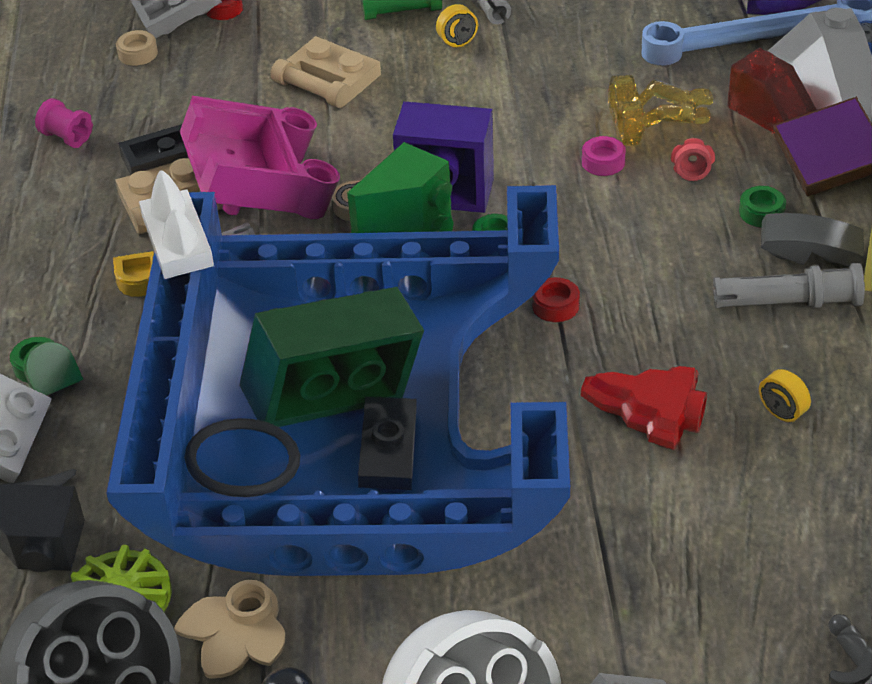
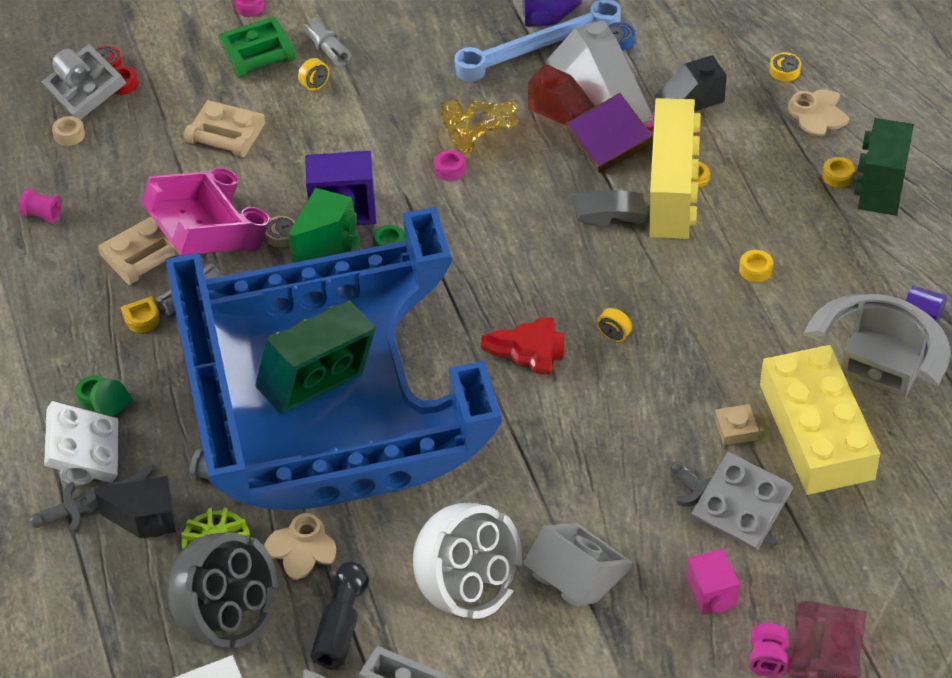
camera: 15 degrees left, 5 degrees up
(153, 149) = (121, 215): black plate -> none
(175, 229) = (186, 287): white tile -> none
(242, 491) = (279, 412): black tyre -> none
(387, 443) = (364, 406): black plate -> none
(556, 300) = (449, 285): red tile -> none
(697, 169) = (516, 165): coral plate -> none
(760, 201) = (569, 184): green tile -> none
(812, 287) = (617, 243): light grey pin -> none

